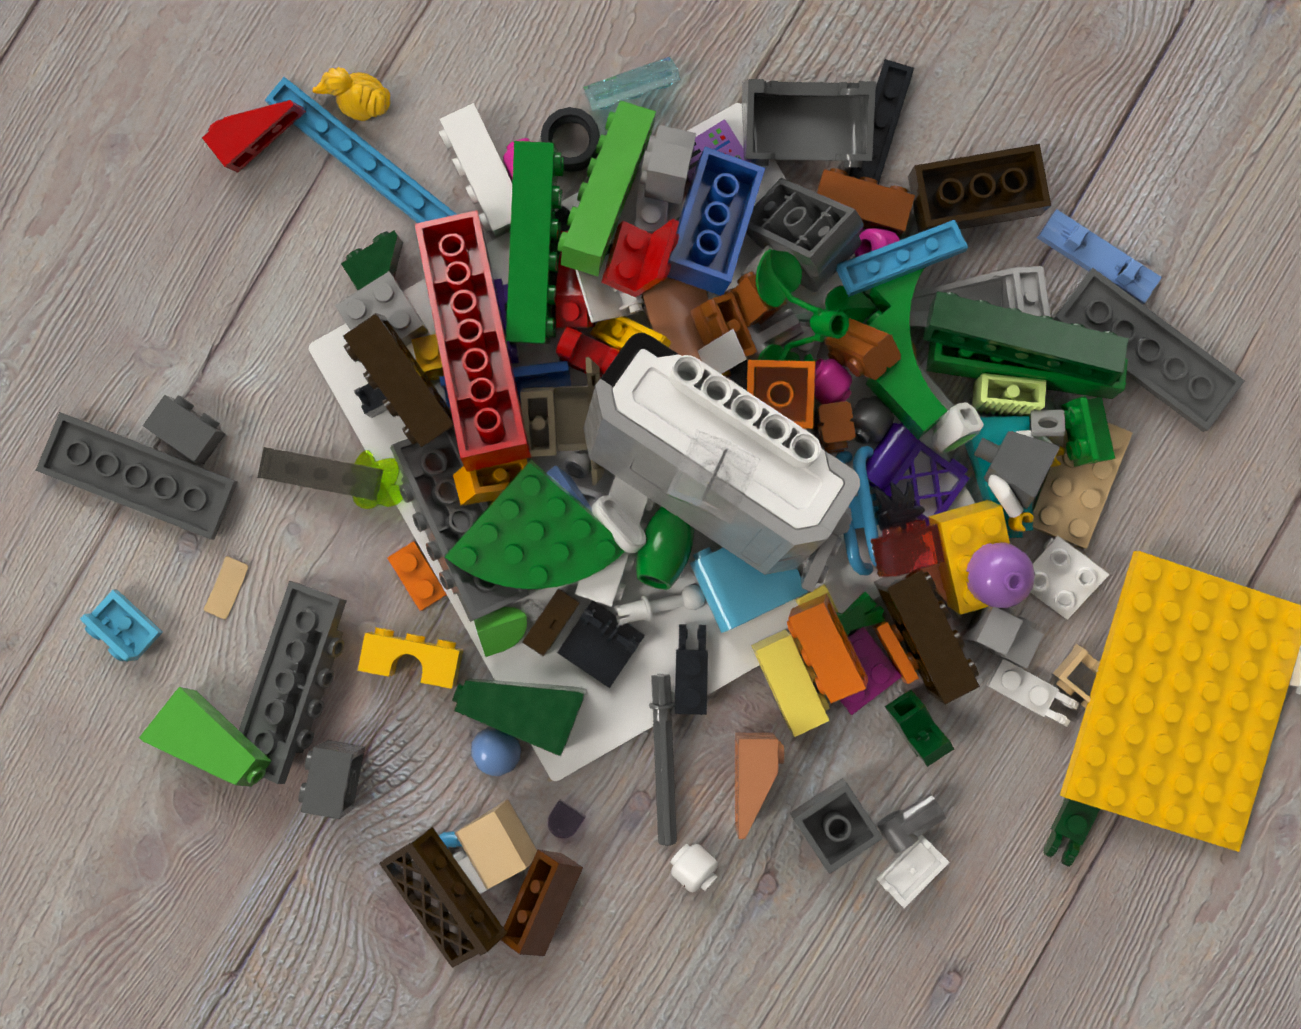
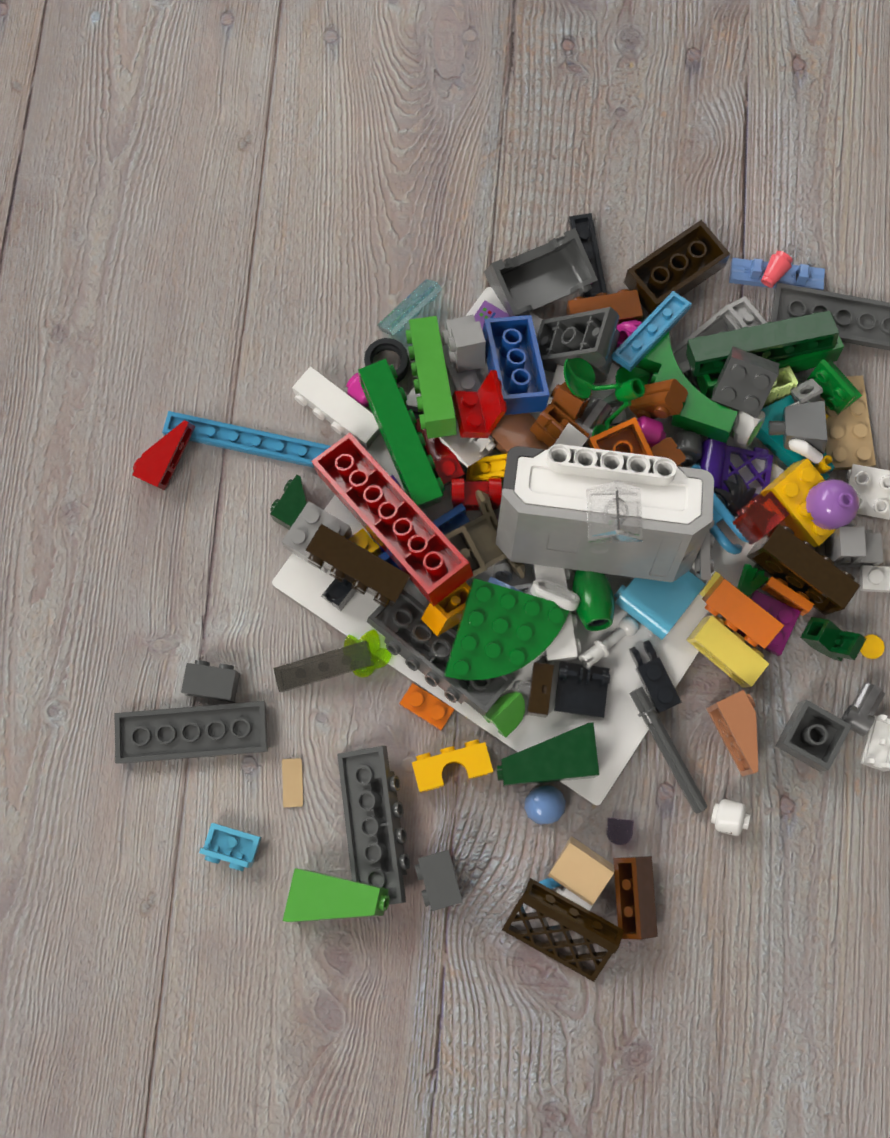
camera: 25 degrees left, 10 degrees down
(356, 93) = (224, 399): yellow hair -> none
(964, 756) = (872, 647): none -> yellow piece
(976, 378) = (745, 381): none -> dark grey brick
(1099, 250) = (776, 268): none -> coral cone

